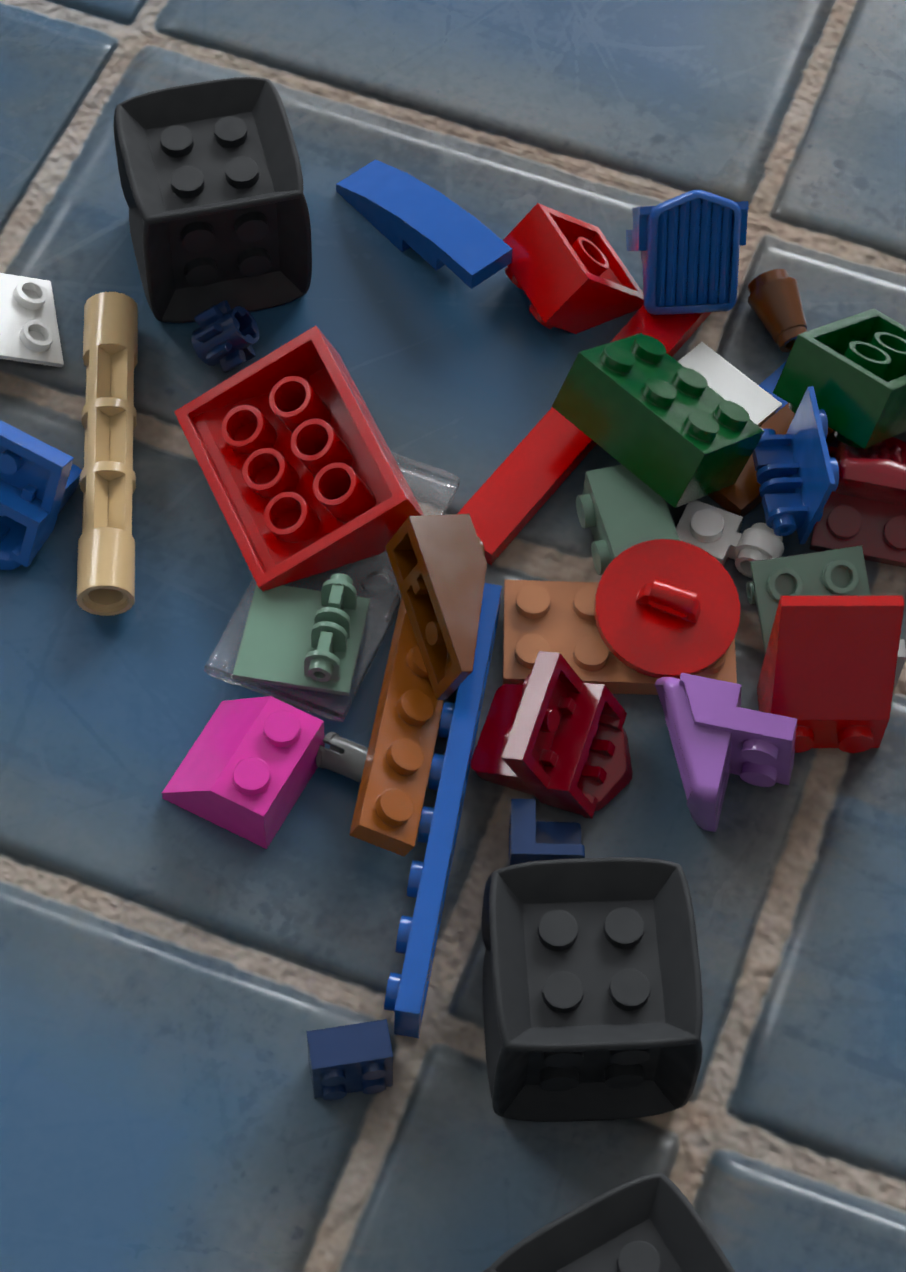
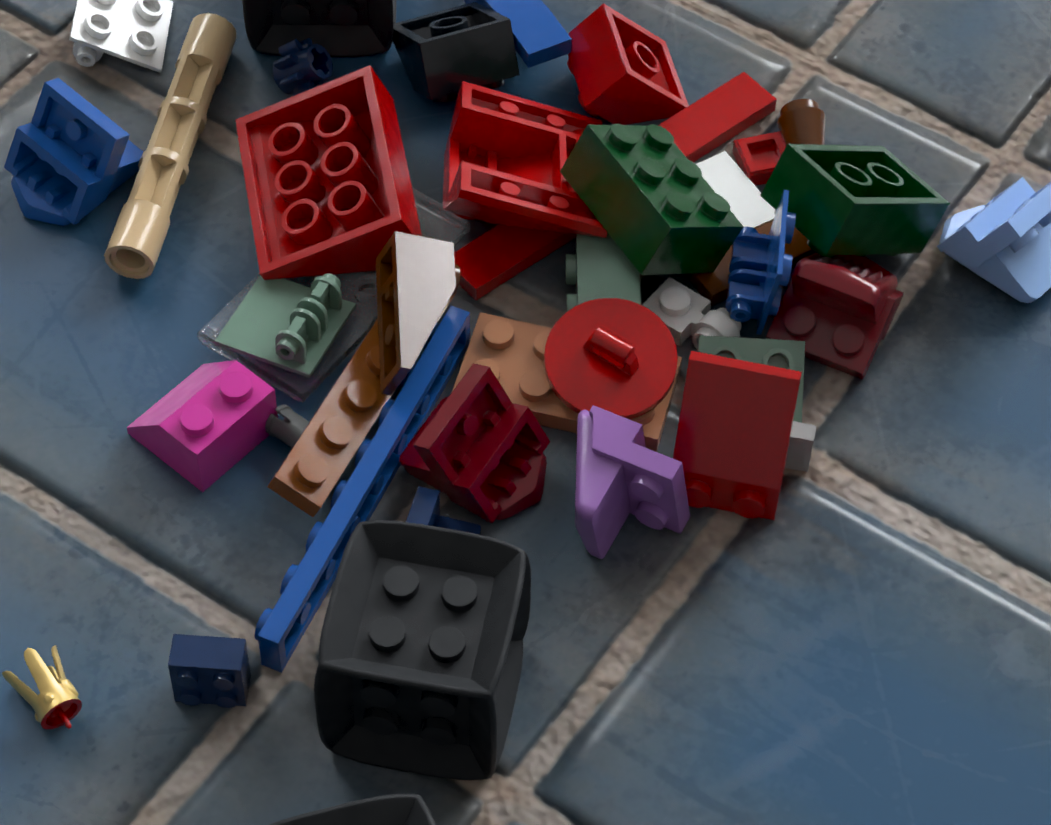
camera: 15 degrees right, 5 degrees down
(192, 1127) = (57, 697): none -> pearl gold piece
(385, 282) = (455, 47): none -> black slope
(488, 401) = (508, 162): none -> red slope
(689, 252) = (727, 67): blue piece -> none
(744, 341) = (759, 155): none -> red tile

